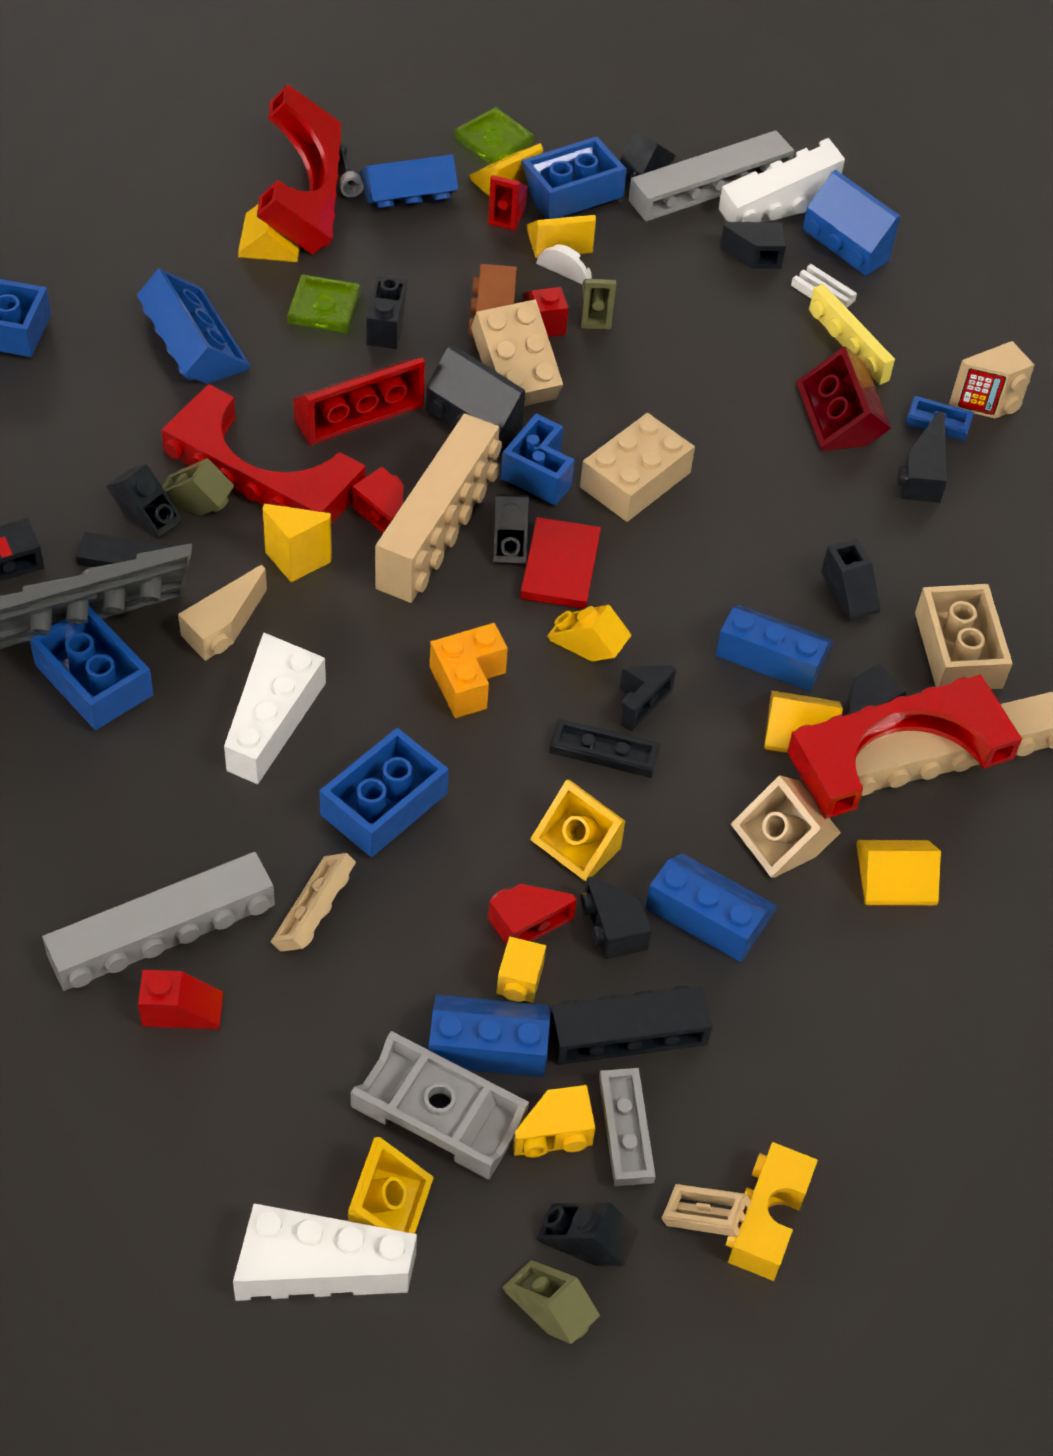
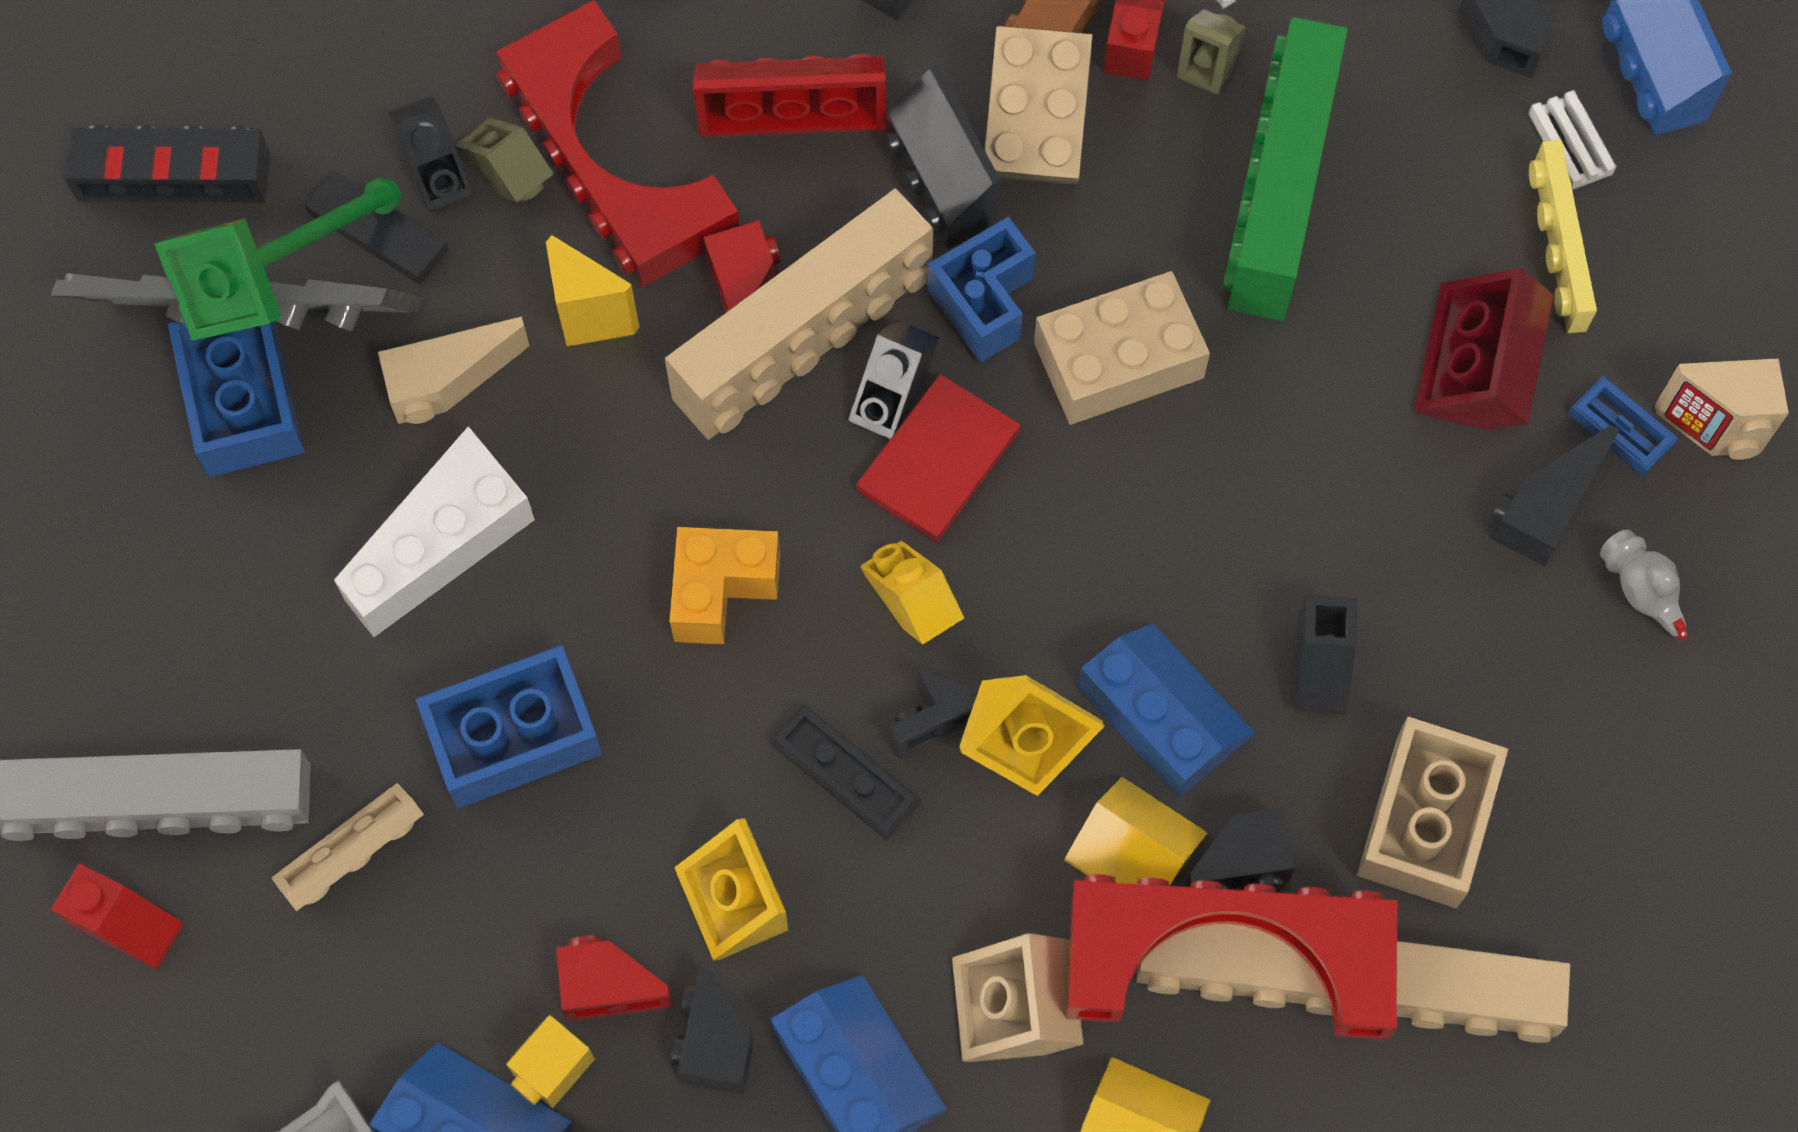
camera: 30 degrees right, 15 degrees up
(87, 562) = (222, 272): none -> green tile
(680, 345) = (1283, 168): none -> green brick
(708, 673) = (1026, 731): none -> yellow slope
(1005, 484) = (1646, 580): none -> light grey animal

